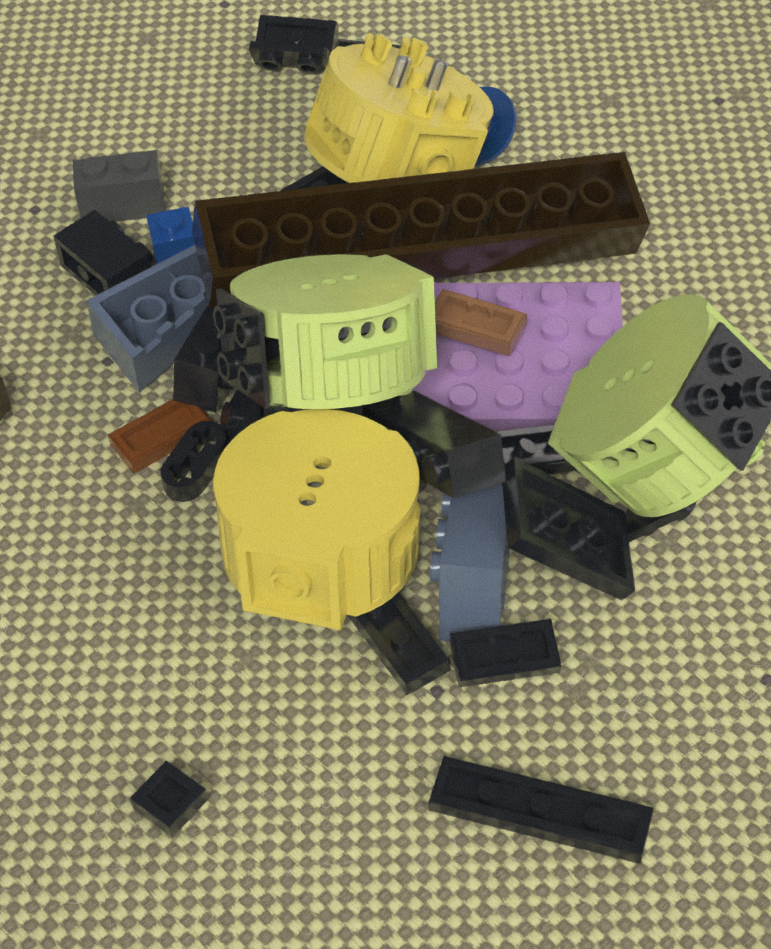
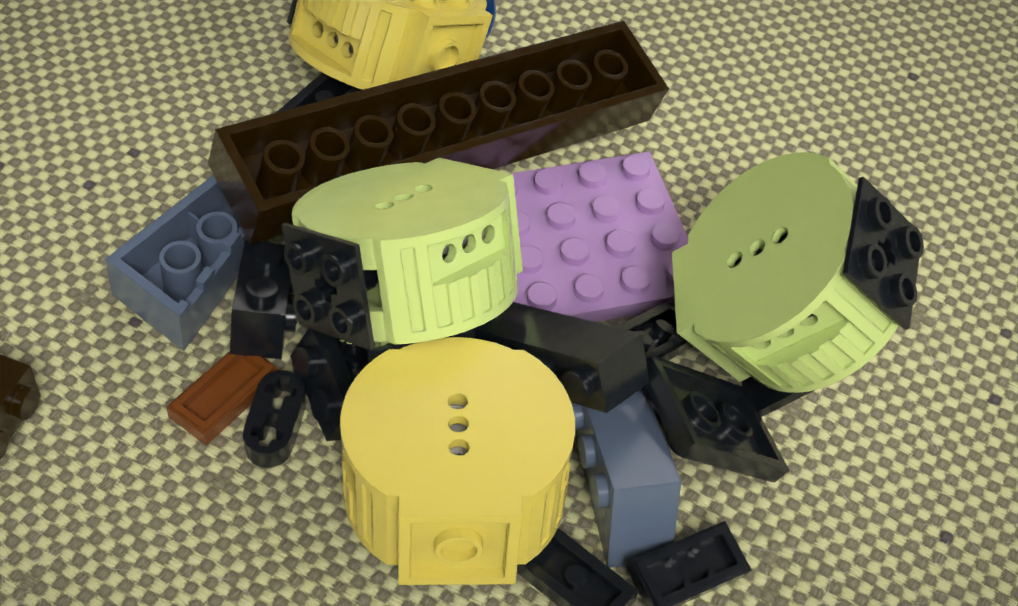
camera: 25 degrees left, 0 degrees up
(100, 253) = (98, 205): black brick -> none
(119, 185) = (93, 127): dark grey brick -> none
(170, 232) = (172, 172): blue brick -> none
(478, 322) = (549, 216): medium nougat plate -> none

